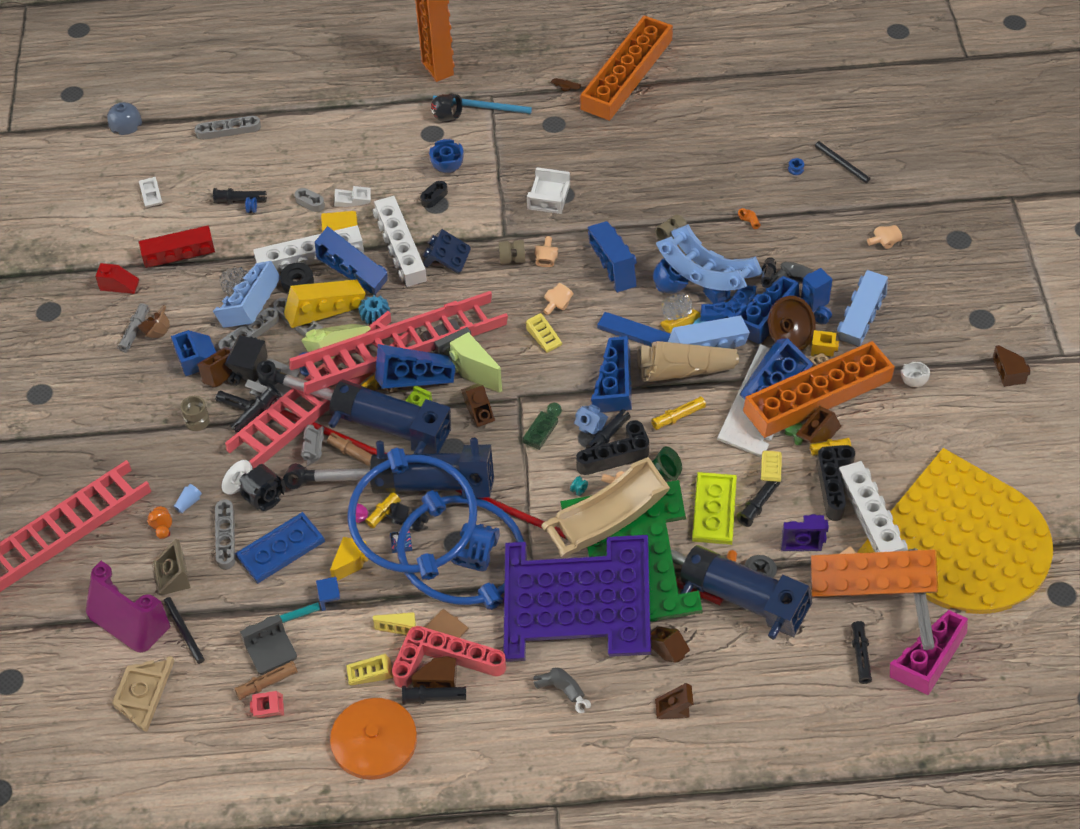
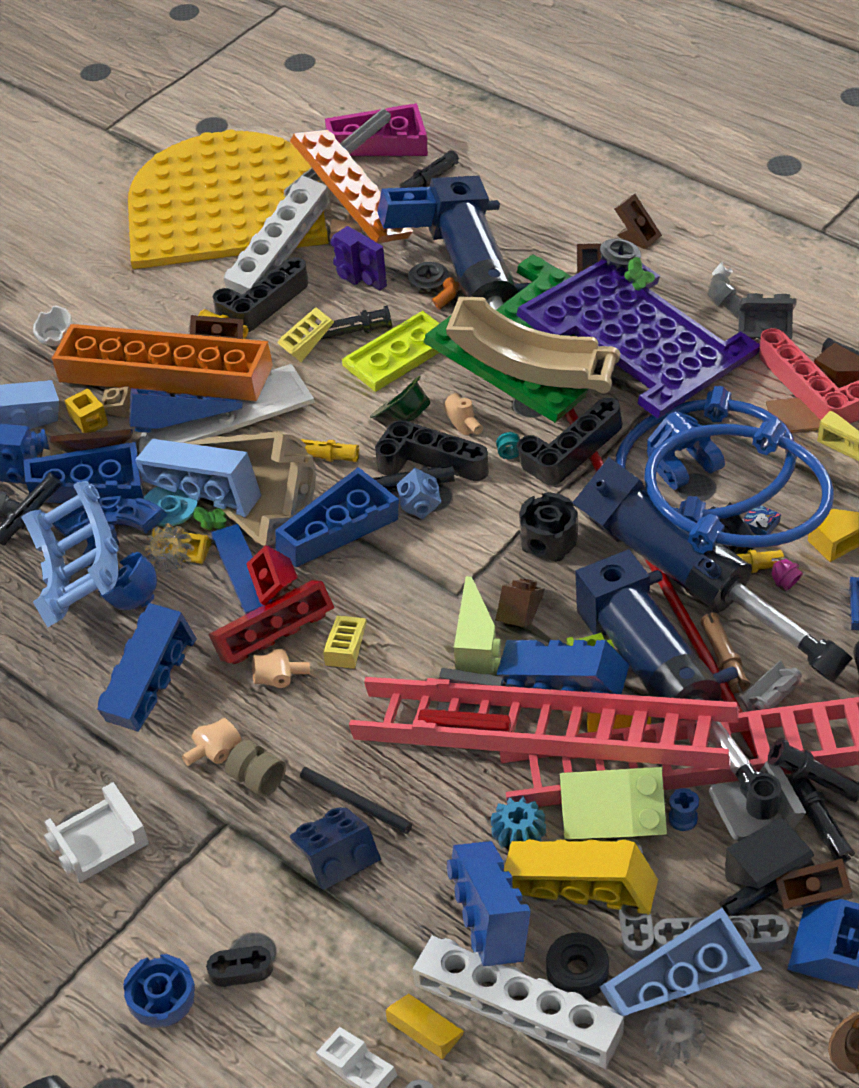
camera: 135 degrees left, 5 degrees down
(400, 241) = (341, 987): white brick -> none
(436, 321) = (466, 720): none -> red axle
(458, 277) = (356, 800): none -> black bar
(506, 447) = (548, 526): none -> black brick
(513, 668) = (761, 313): none -> dark grey bracket
(543, 426) = (473, 531): clear green plate -> none
(544, 488) = (570, 449): none -> black beam
(582, 309) = (271, 621): none -> red brick
(606, 325) = (270, 573): none -> red slope
(611, 627) = (637, 275): none -> bright green piece
(643, 628) = (610, 249): none -> dark grey gear
(664, 229) = (40, 648): dark tan wheel -> none
(812, 568) = (406, 207): none -> blue brick

